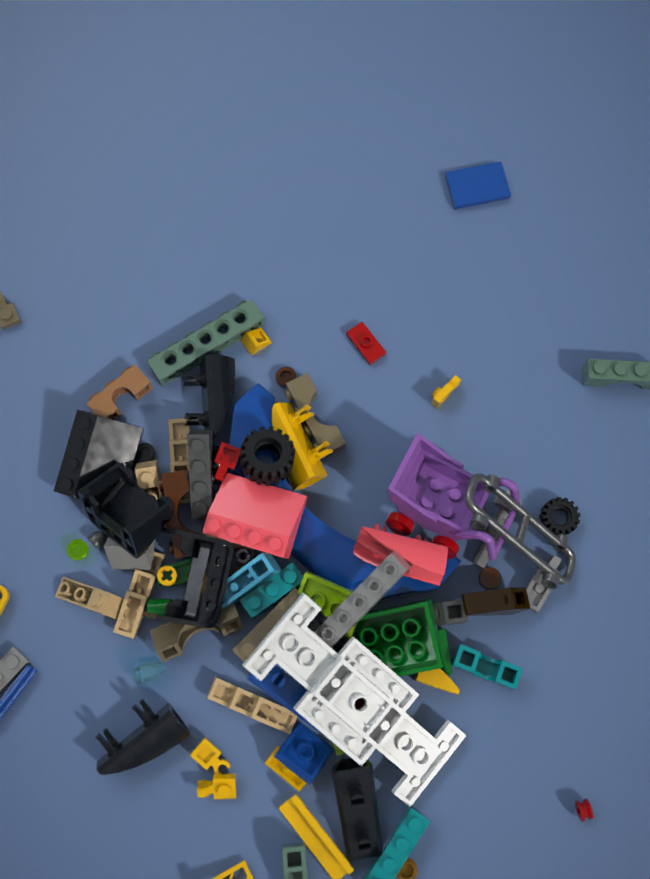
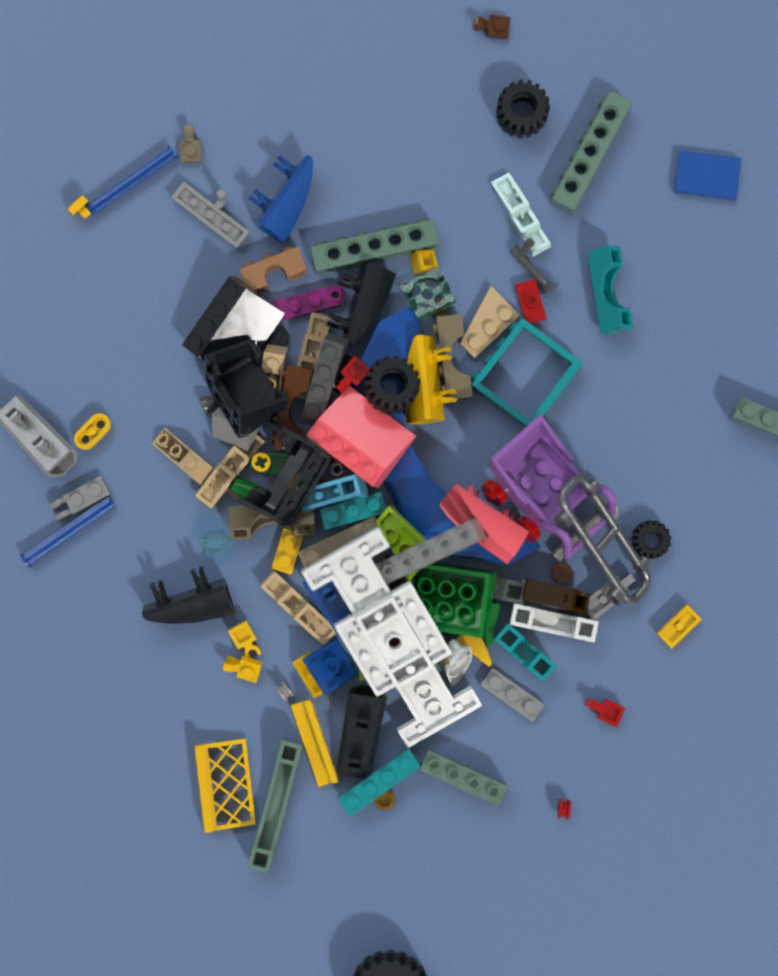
camera: 25 degrees right, 10 degrees up
(44, 364) = (211, 214): none -> light grey plate
(77, 549) = (186, 407): clear neon green plate -> none
(111, 338) = (284, 210): none -> blue piece
(166, 409) = (310, 302): none -> magenta plate
(222, 654) = (287, 552): none -> yellow plate
(247, 123) = (496, 26): none -> reddish brown plate
(267, 795) = (284, 690): none -> light grey bush
(270, 384) = (424, 312): none -> piece
(296, 167) = (530, 94): none -> black tyre
(328, 271) = (520, 213): none -> light aqua slope
(335, 375) = (489, 323): none -> tan wing
(341, 305) = (520, 254): none -> dark grey piece
(355, 389) = (502, 346): none -> teal window
(373, 153) = (618, 108): none -> sand green brick
(420, 287) = (604, 266): none -> teal arch
(426, 702) = (456, 663): none -> white hat
(442, 394) = (584, 380): yellow plate -> none
(475, 816) = (463, 777): none -> sand green brick
(489, 714) = (512, 694): none -> light grey plate
(502, 628) = (553, 623): none -> white arch
(586, 695) = (607, 711): none -> red plate
(618, 588) = (678, 626): none -> yellow plate

